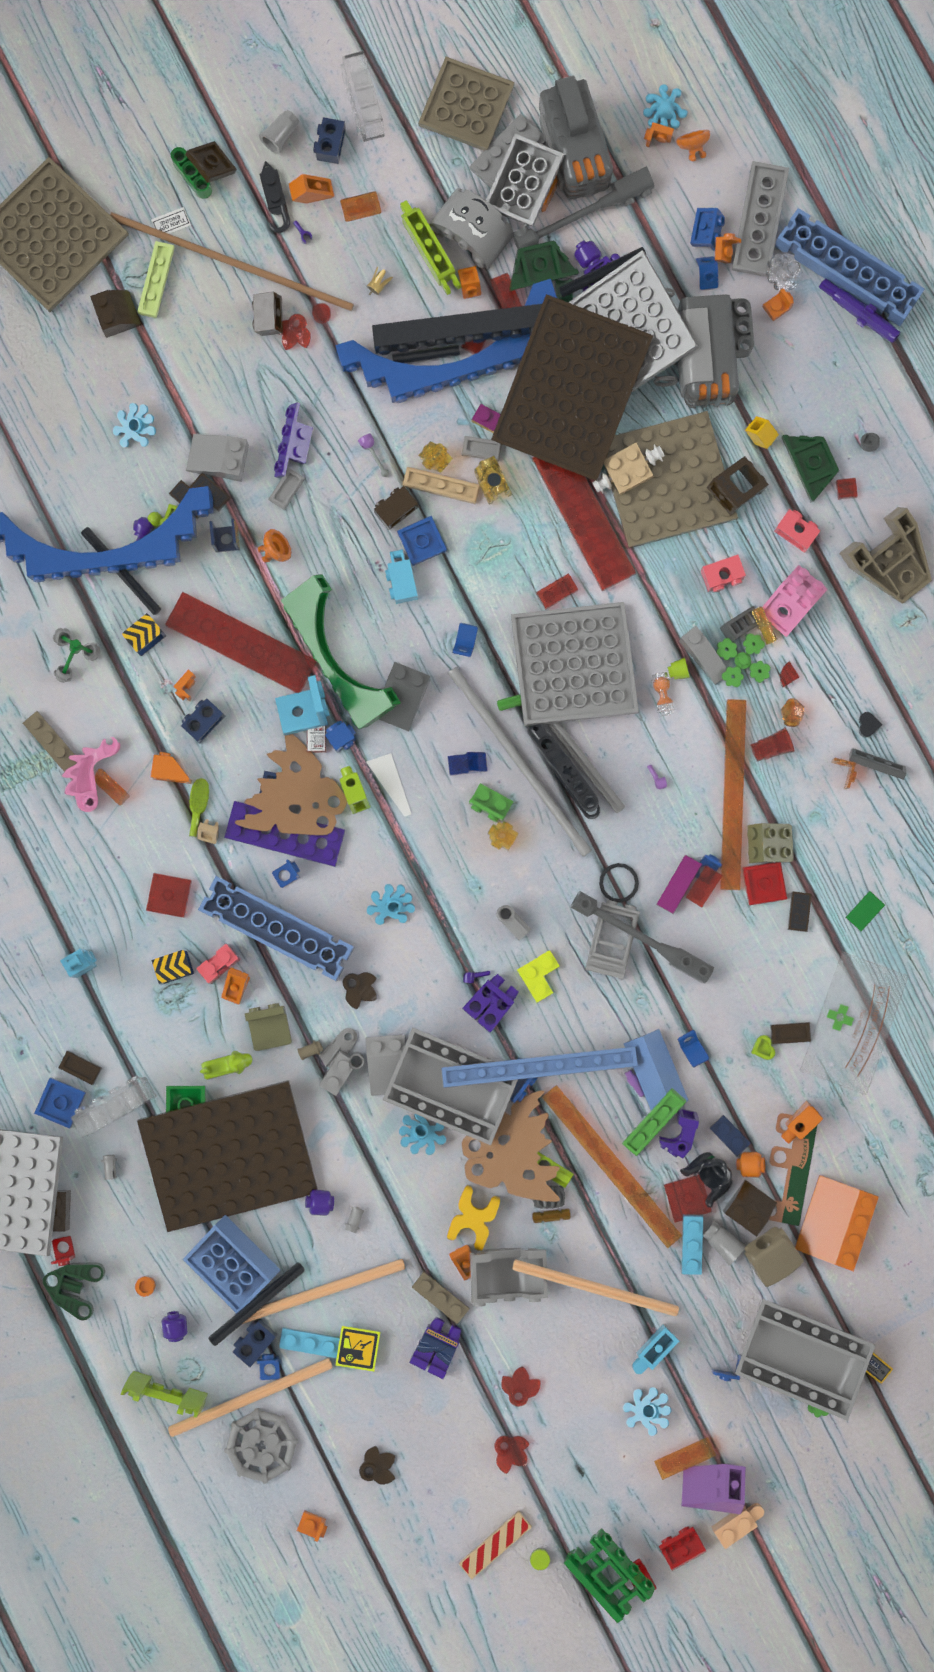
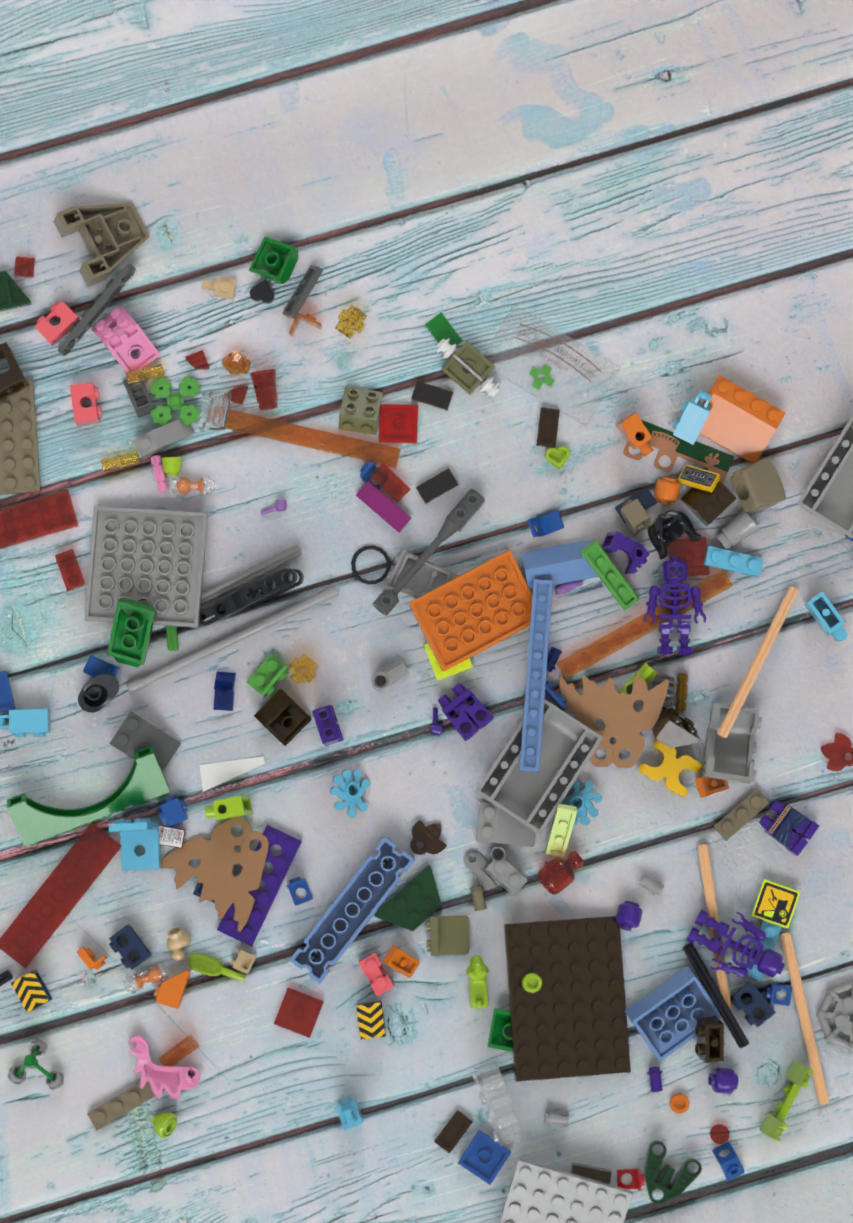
camera: 80 degrees left, 0 degrees up
(39, 786) = (164, 1123): none -> lime brick
(94, 1348) = (730, 1164): none -> blue bracket
(122, 1331) = (719, 1133): none -> clear red tile
(164, 1258) = (655, 1079): none -> dark purple pin
(179, 748) = (152, 975): none -> clear piece
(211, 1306) = (710, 1039): none -> dark brown brick
(216, 764) = (176, 941): none -> tan animal
(235, 1118) = (531, 982): none -> lime tile
(294, 986) = (413, 902): none -> dark green wing
(298, 1351) = (768, 961): none -> dark purple piece
(349, 1125) = (559, 873): none -> clear red piece
(391, 1120) = (561, 830): none -> yellowish green plate
(442, 641) = (98, 692): none -> black piece
(450, 869) = (327, 726): none -> dark purple hips
(452, 824) = (282, 717): none -> dark brown slope
(507, 661) = (131, 632): none -> green slope
(511, 1215) = (674, 730): none -> slope
(561, 1080) = (553, 657): none -> clear blue pin
(592, 993) = (474, 610): none -> orange plate
(665, 660) = (159, 474): none -> bright pink axle
(668, 1187) = (674, 573): none -> dark purple piece
(673, 618) = (120, 461): none -> clear yellow axle
(710, 933) = (437, 486): none -> tile
(718, 1137) = (635, 516): none -> dark tan slope
(741, 699) = (218, 406): none -> clear plate
(761, 719) = (239, 394): none -> clear red tile
(769, 1194) = (699, 478): none -> tile
(812, 562) = (91, 315): none -> dark grey plate
(829, 1178) = (693, 418): none -> medium azure brick
(834, 942) = (468, 368): none -> olive plate
(857, 817) = (351, 321): none -> clear yellow brick
(865, 685) = (223, 287): none -> tan plate
(903, 730) = (274, 260): none -> green slope

